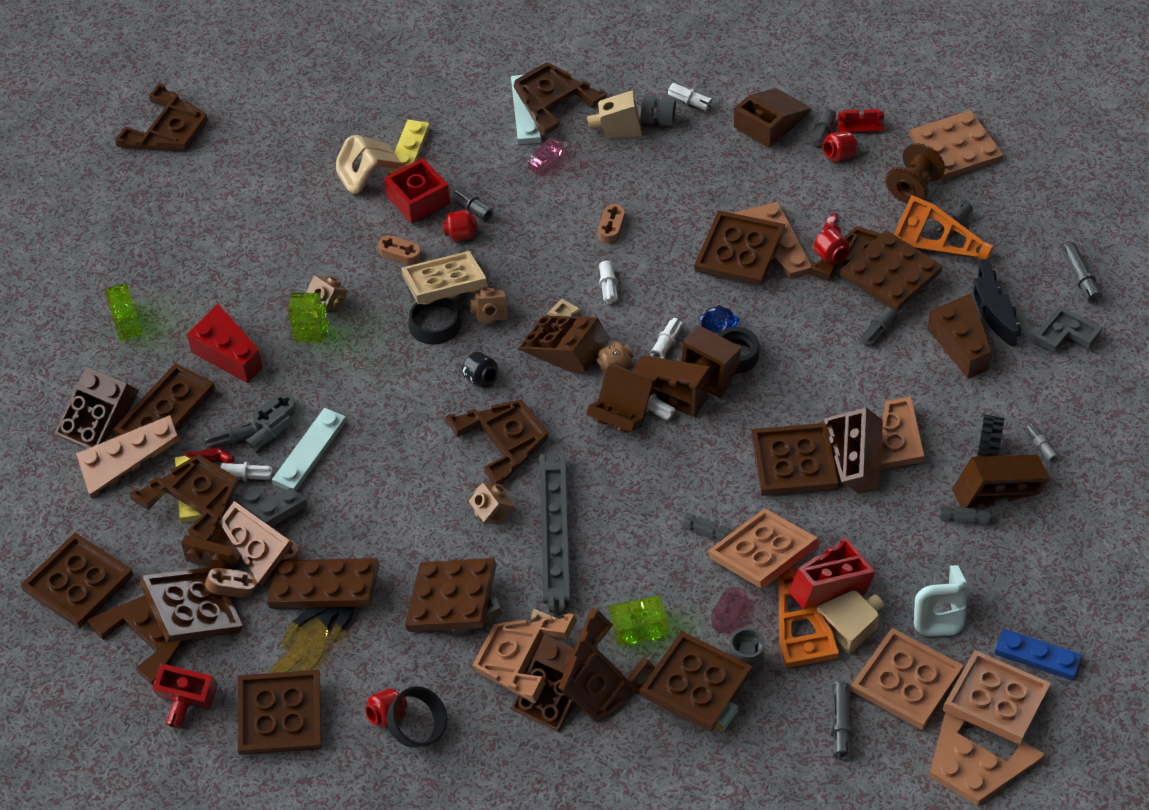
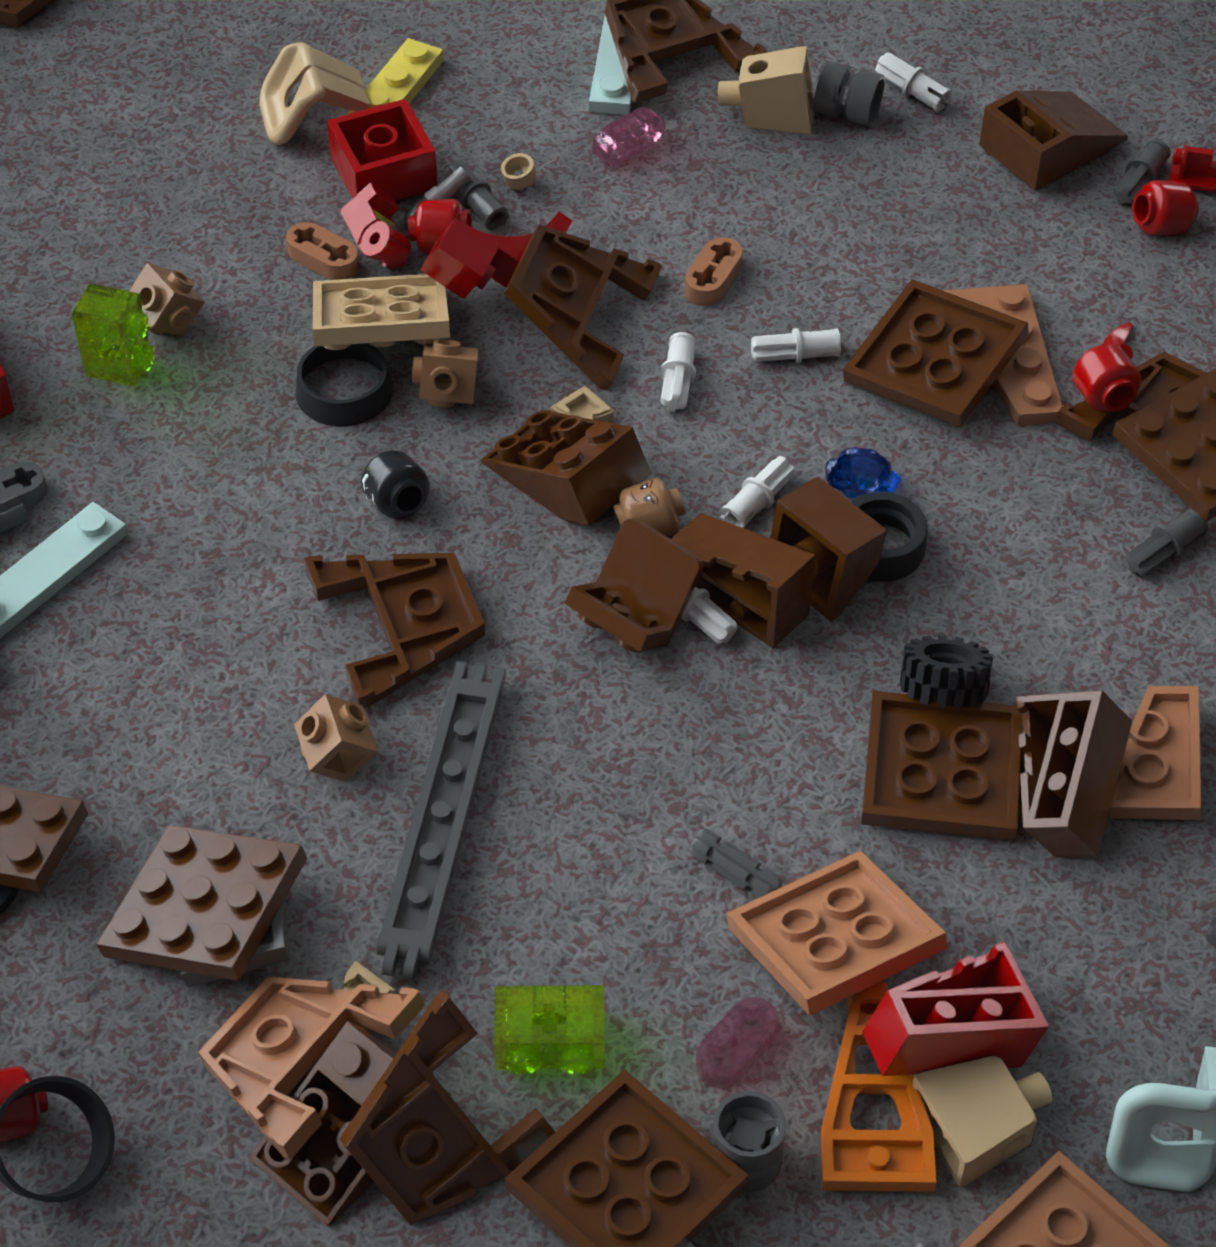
camera: 10 degrees right, 0 degrees up
(425, 234) = (373, 229): none -> leg
(454, 206) = (443, 191): none -> light grey piece
(484, 241) = (472, 257): none -> red arch
(495, 182) = (527, 168): none -> tan hinge
(536, 248) = (560, 286): none -> reddish brown wing
(666, 256) = (796, 345): none -> white axle
(785, 412) = (946, 671): none -> black tyre

